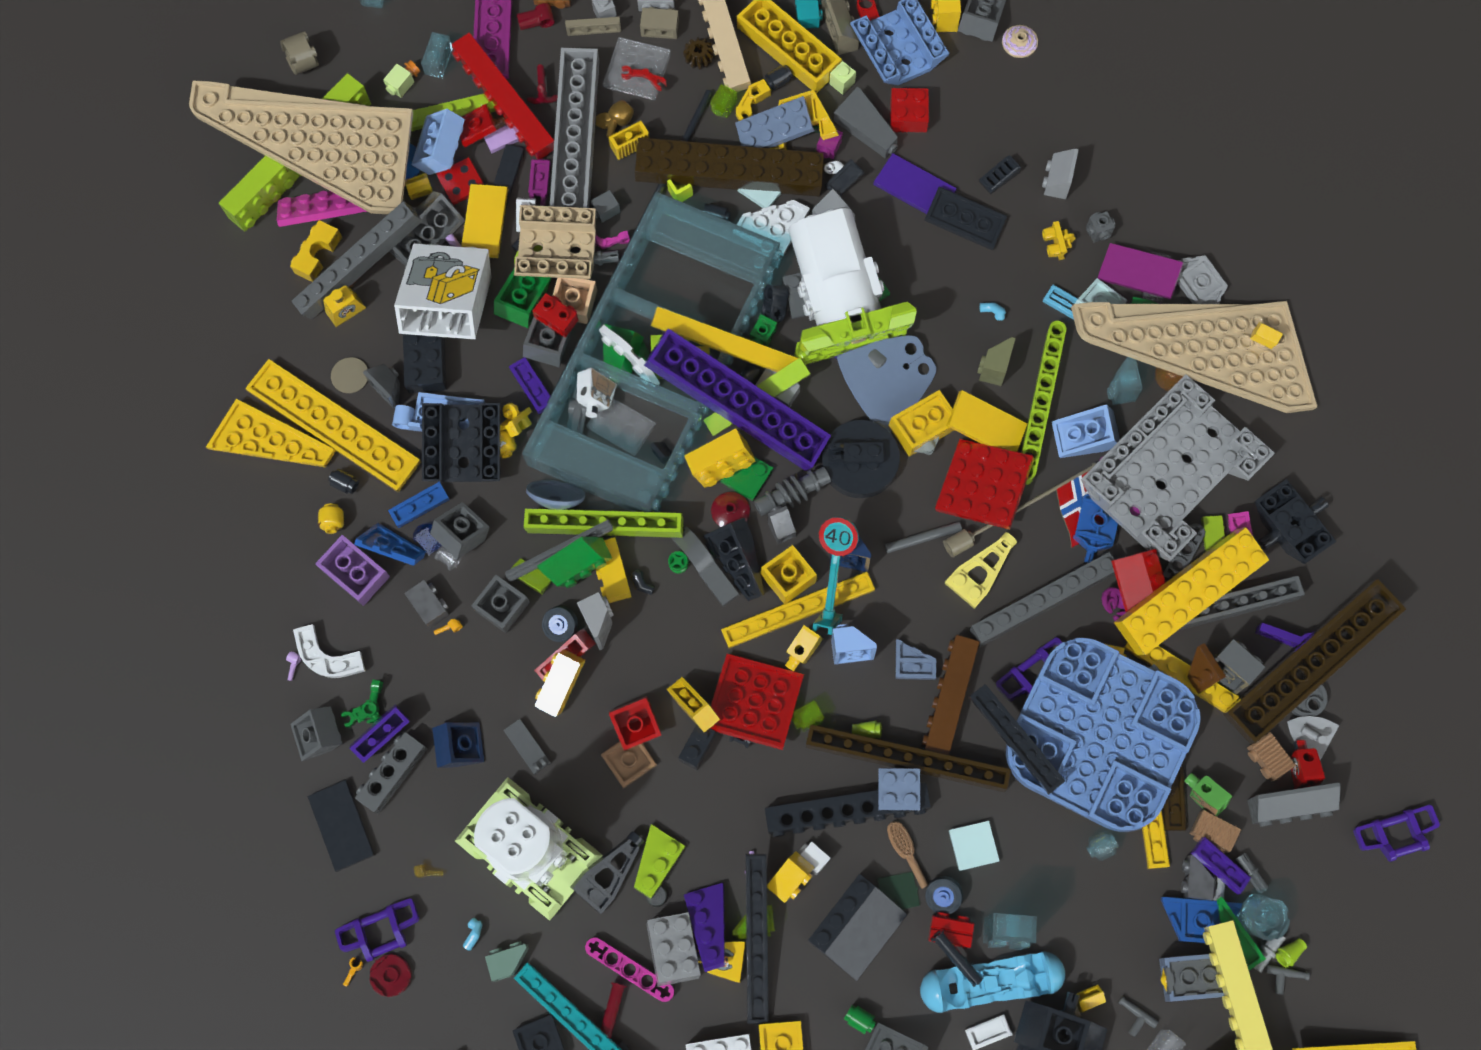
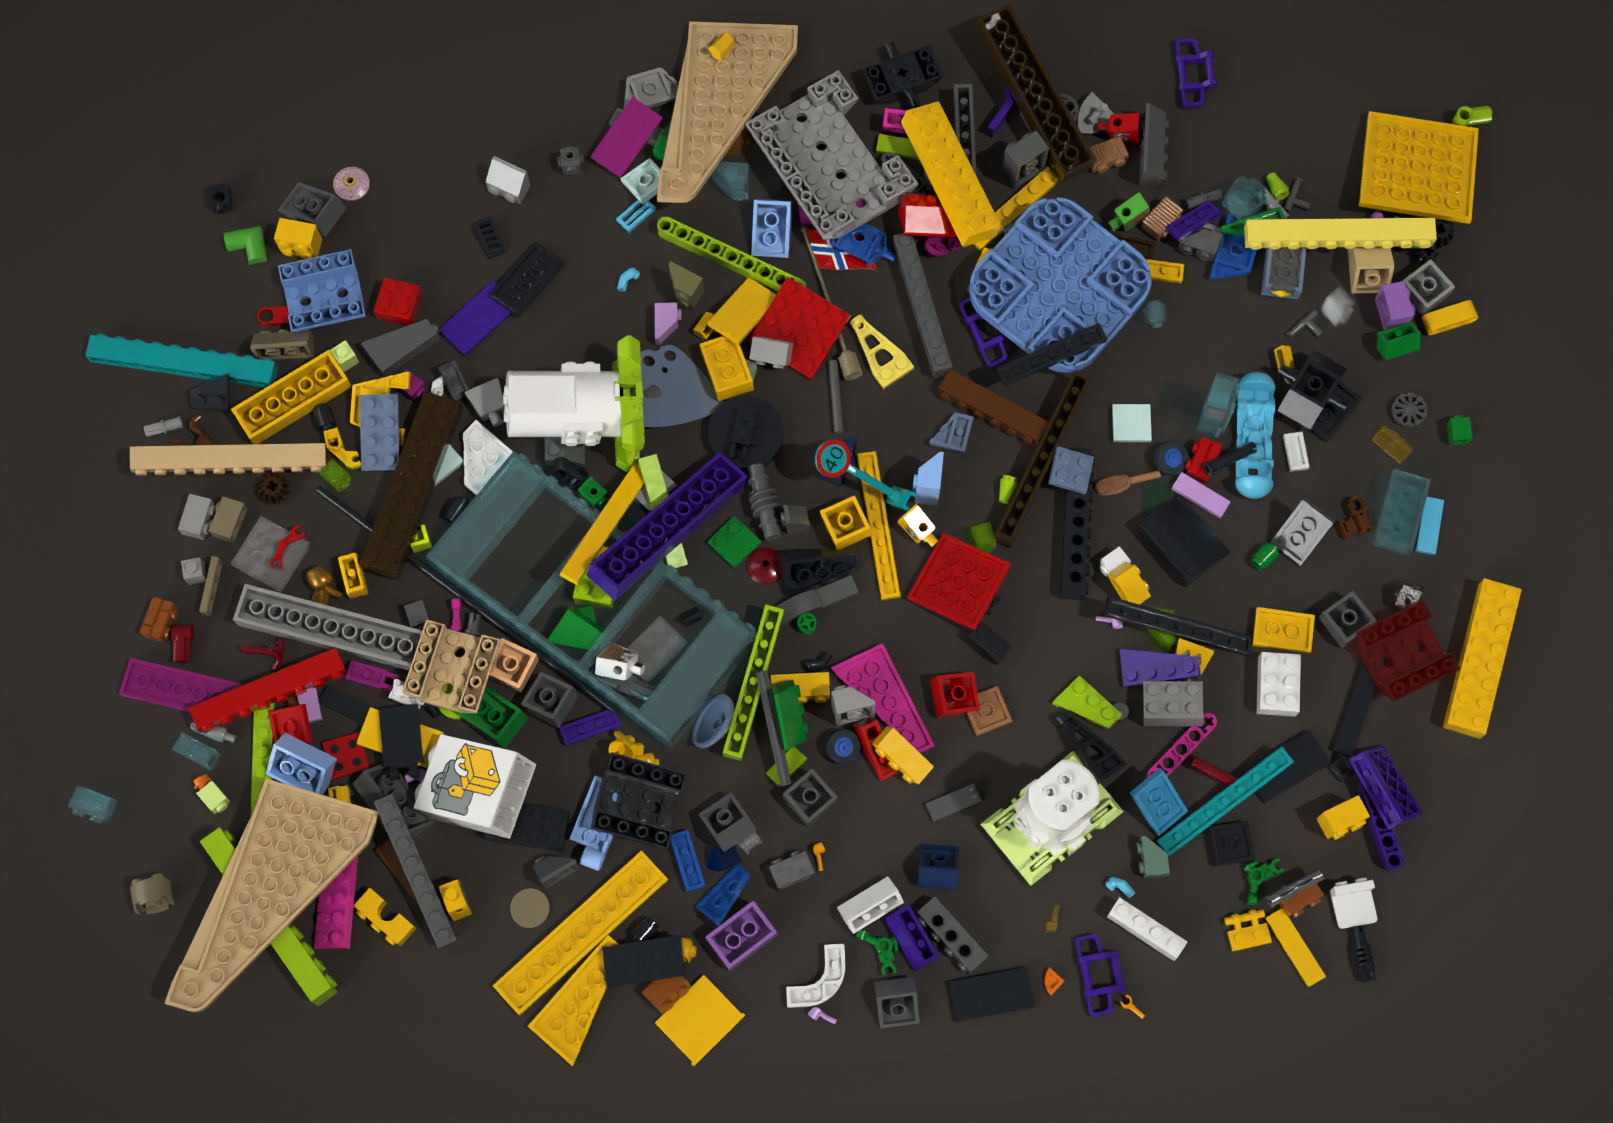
camera: 80 degrees left, 0 degrees up
(270, 552) = (699, 1020): none -> yellow piece
(290, 514) = (666, 992): none -> dark orange brick
(310, 485) = (644, 961): none -> black tile
(364, 884) = (1052, 981): none -> orange tile
(390, 975) = (1143, 972): dark red tile -> none
(405, 685) = (870, 905): none -> white brick
(431, 970) = (1147, 929): none -> white brick
(458, 72) = (218, 734): none -> light grey piece
(479, 220) = (401, 739): none -> black tile
(555, 314) = (530, 680): red brick -> none
(563, 954) = (1158, 801): none -> dark azure plate
(623, 348) = (604, 612): white plate -> none
(626, 650) = (878, 679): none -> dark pink wing
(693, 704) = (952, 634): yellow brick -> none
(720, 458) = (718, 557): yellow brick -> none
(911, 936) = (1200, 495): none -> lavender tile
(950, 460) = (771, 351): none -> light grey brick
(957, 355) = (666, 320): none -> lavender slope
(957, 387) = (701, 326): none -> yellow piece
(1058, 248) = (573, 199): yellow hips -> none
(1204, 670) = (1023, 184): reddish brown wing -> none

